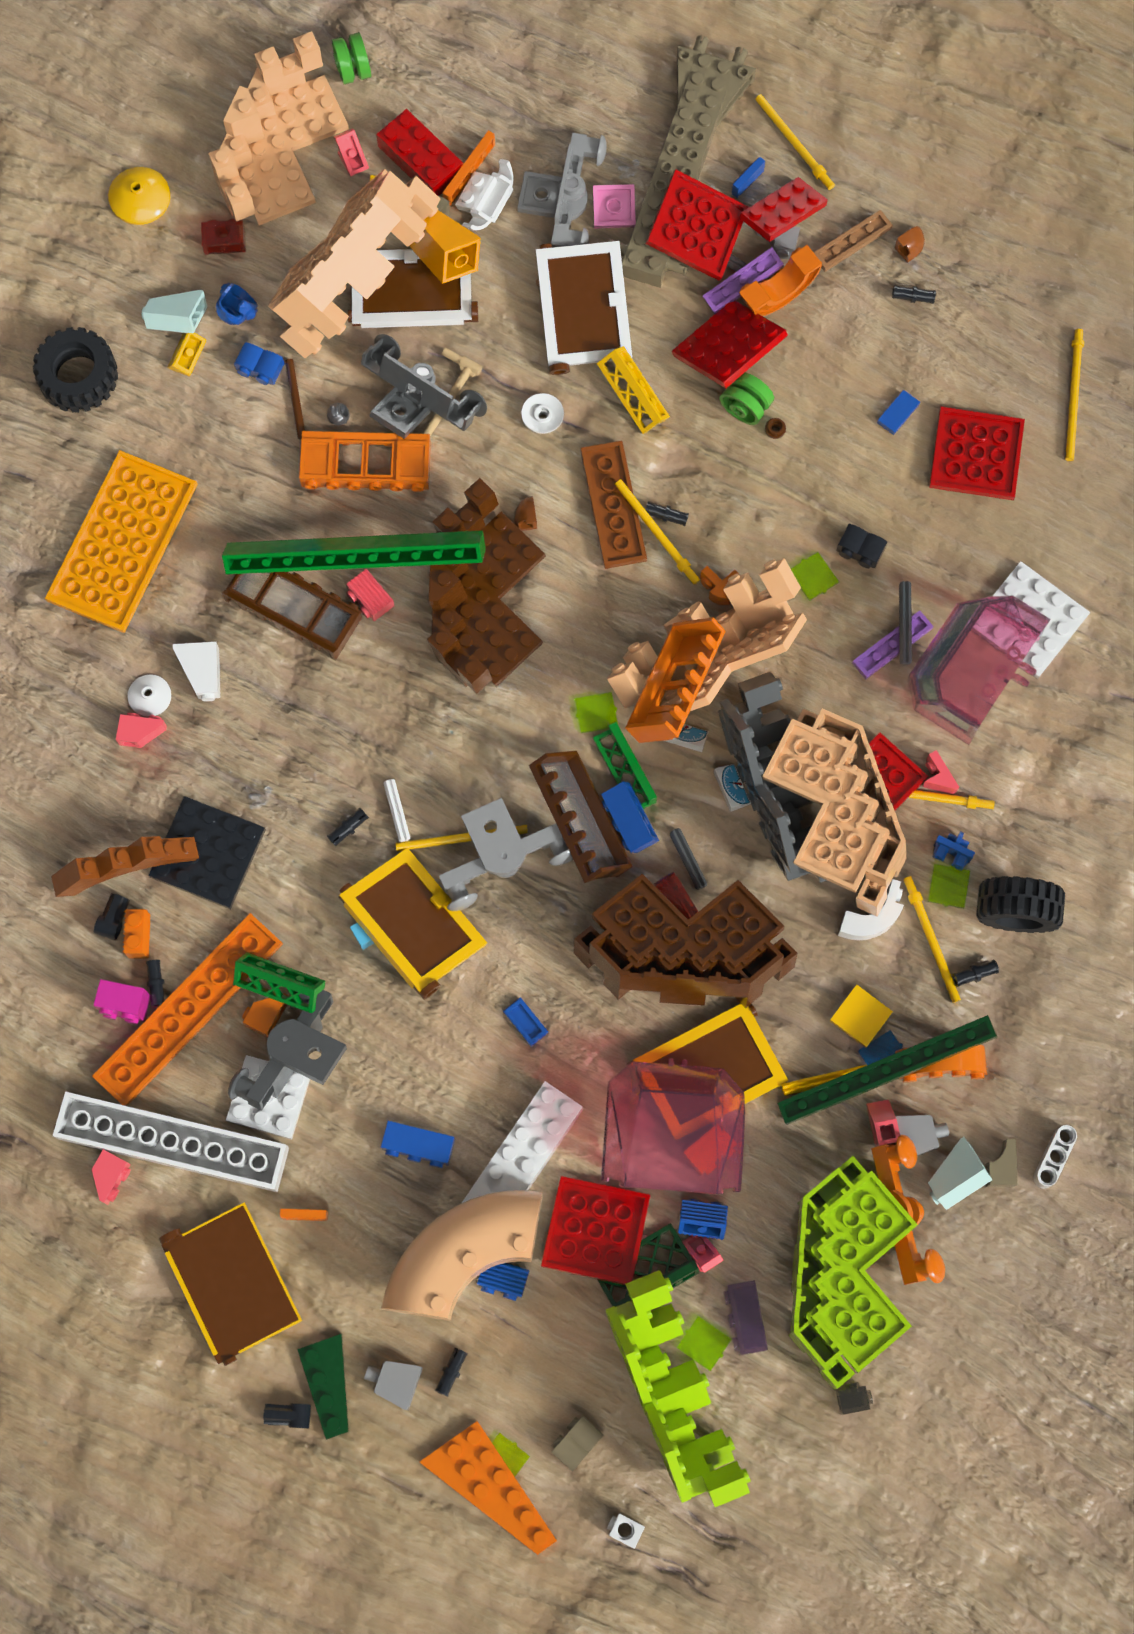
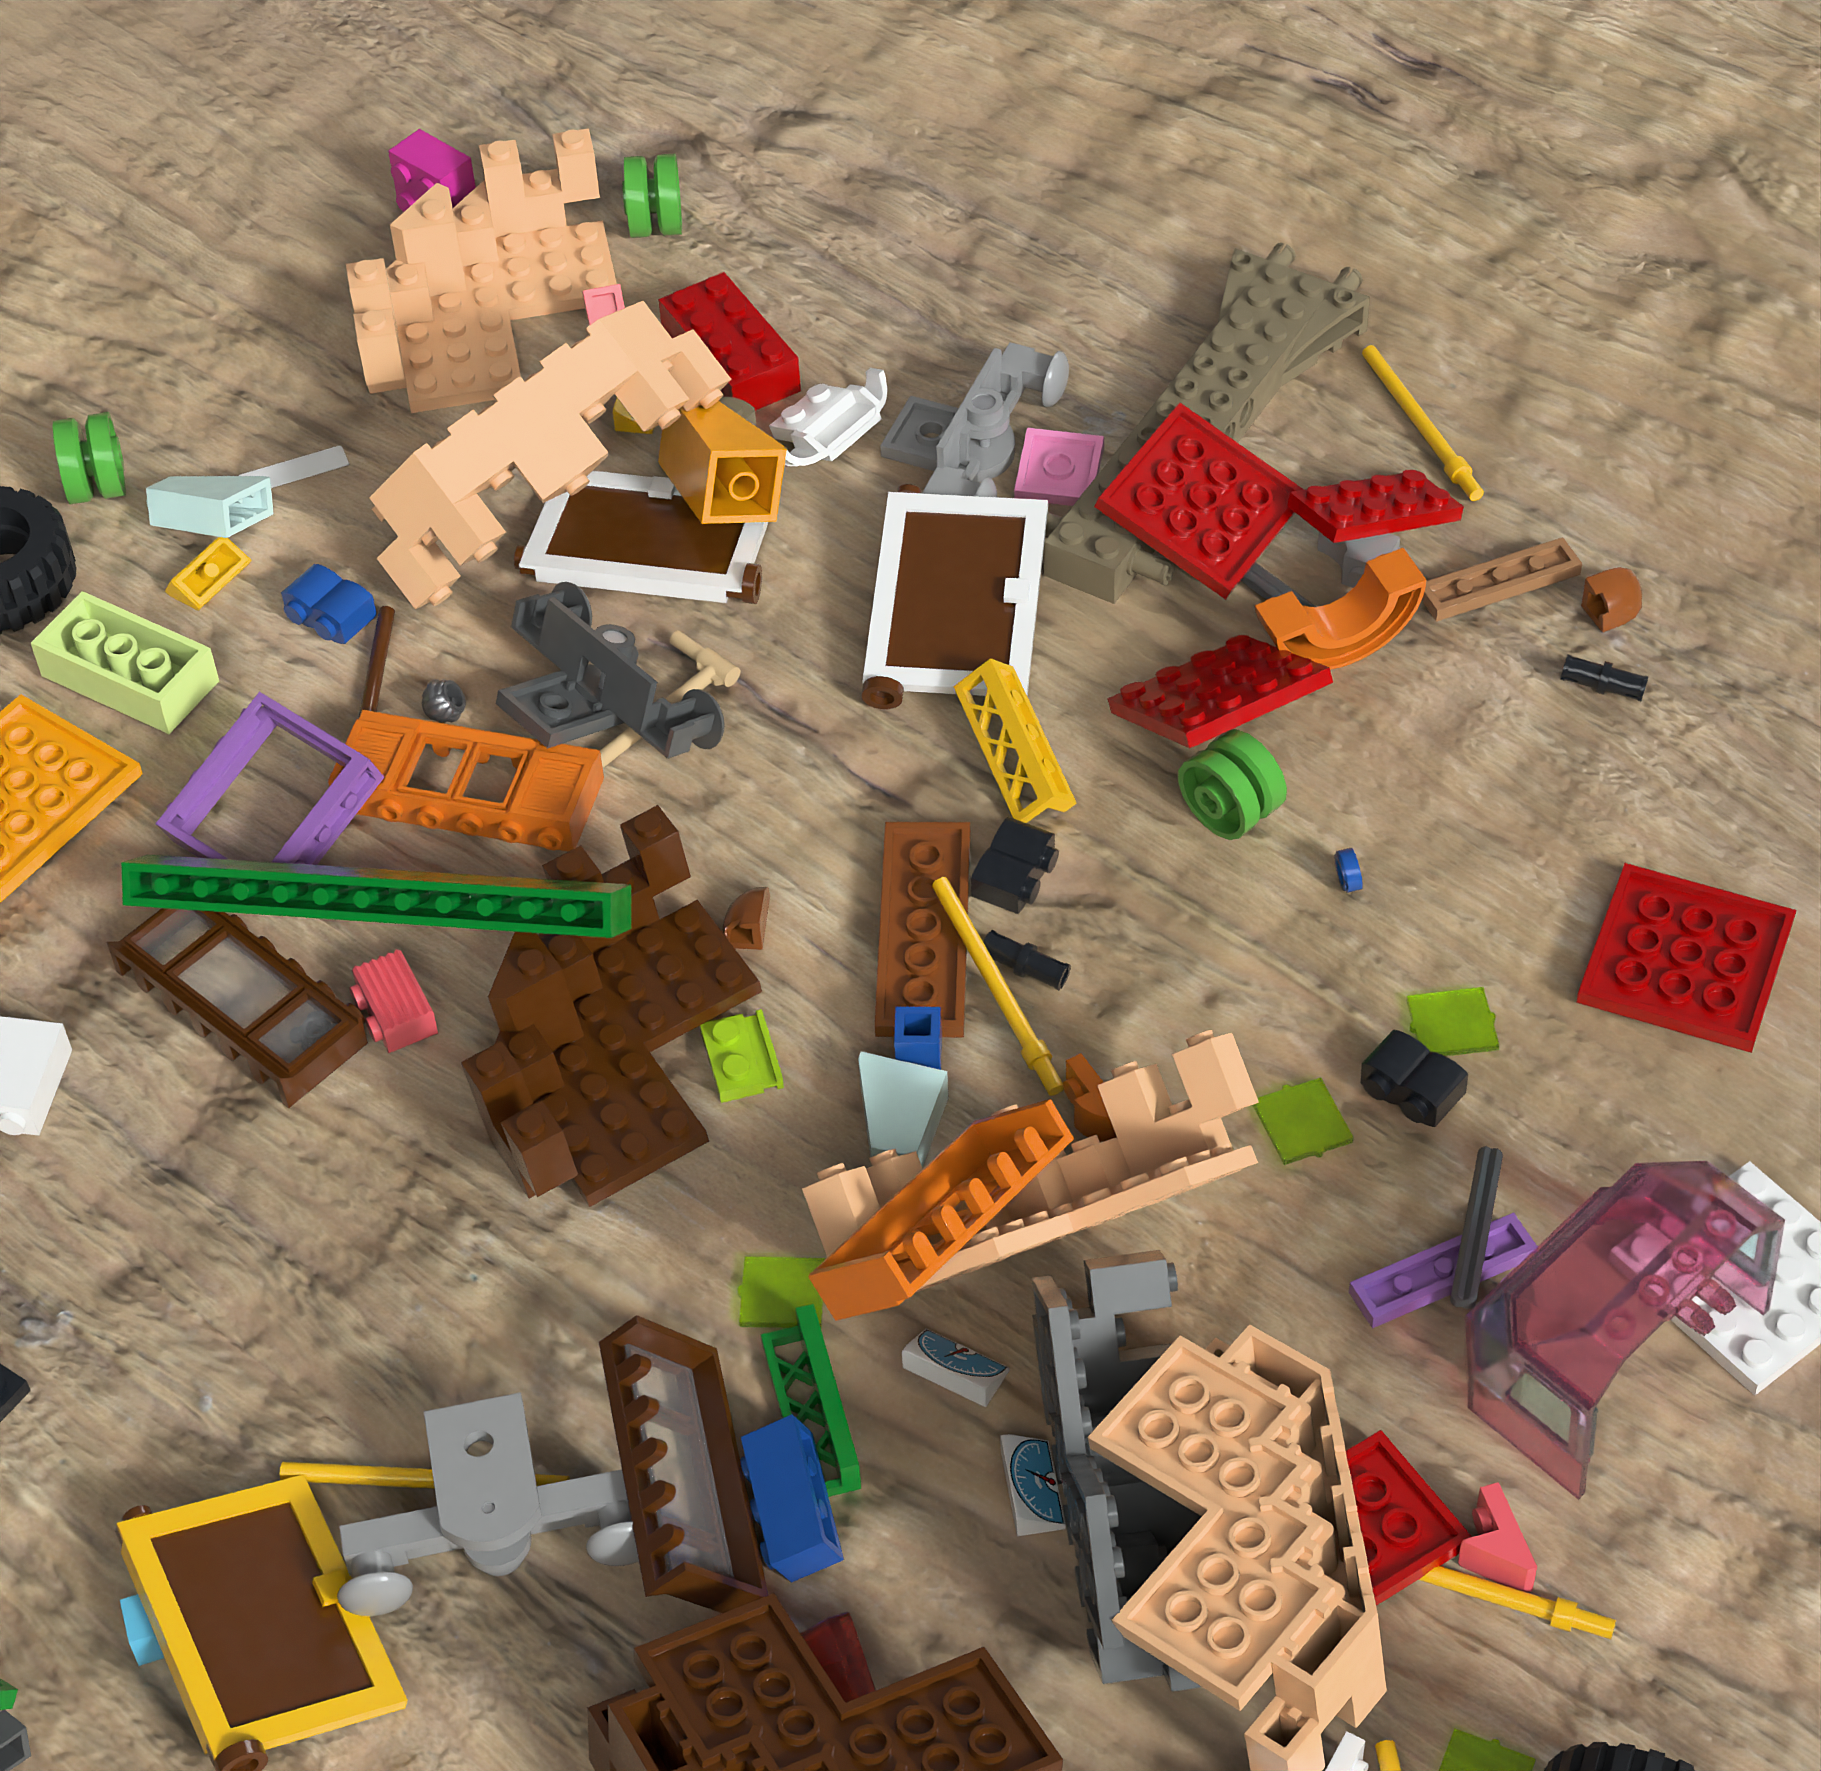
camera: 15 degrees right, 25 degrees down
(103, 295) = (83, 458): none -> bright green wheel
(139, 205) = (221, 343): yellow dish -> none
(167, 421) = (125, 662): none -> yellowish green brick
(209, 274) = (303, 466): none -> white sticker
(225, 67) = (423, 162): none -> dark pink brick
(232, 243) = (339, 413): clear red brick -> none
(235, 305) = (318, 507): blue helmet -> none
(244, 474) = (232, 754): none -> medium lavender window
(347, 827) = (194, 1411): black pin -> none
(396, 810) = (308, 1400): white axle -> none
(468, 168) = (820, 368): orange tile -> none
(543, 591) = (741, 1056): none -> lime plate
(546, 405) = (829, 757): white dish -> none
(627, 610) = (901, 1104): none -> light aqua slope
(628, 571) = (918, 1035): none -> blue brick
(649, 460) = (1013, 865): none -> black brick
(688, 859) = (898, 1610): dark grey axle -> none
(748, 177) = (1322, 456): blue tile -> none
(756, 270) = (1311, 584): medium lavender plate -> none
(775, 422) = (1281, 852): reddish brown plate -> none
(810, 434) = (1348, 870): none -> blue tile
(873, 509) = (1453, 1021): none -> clear neon green piece
(898, 412) = (1537, 865): blue tile -> none
(955, 846) = (1505, 1697): blue hips -> none

